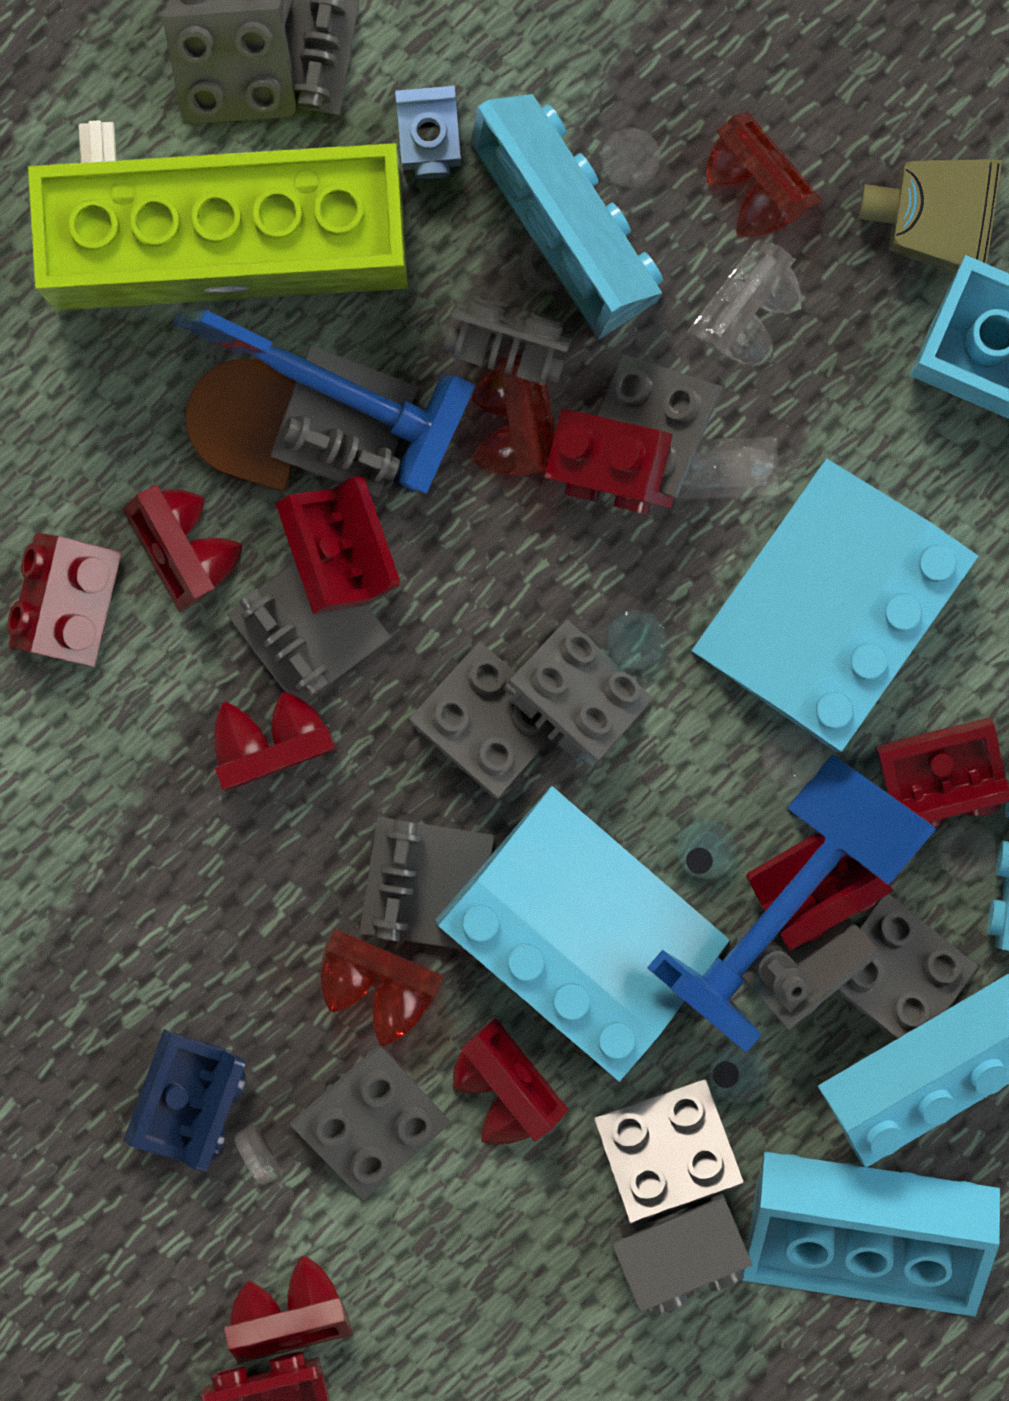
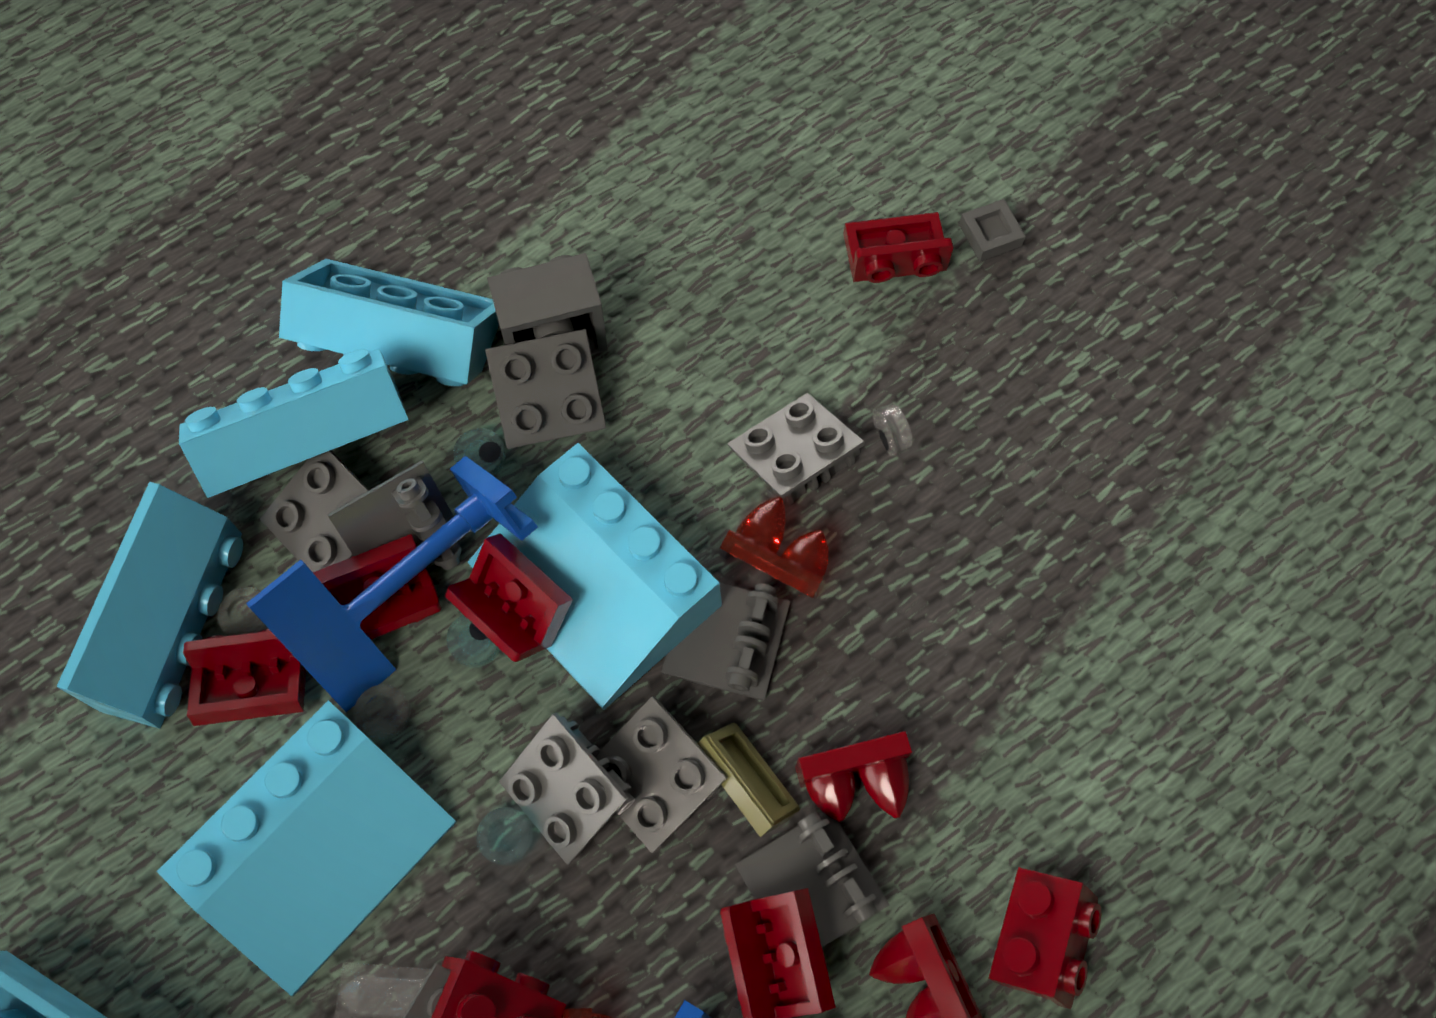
camera: 175 degrees left, 20 degrees down
(186, 1100) = (950, 478): dark blue bracket -> none
(312, 1316) = (856, 310): dark red tile -> none
(382, 725) = (749, 779): none -> olive tile
(525, 1099) = (664, 453): dark red tile -> none
(668, 888) = (511, 600): none -> dark red bracket

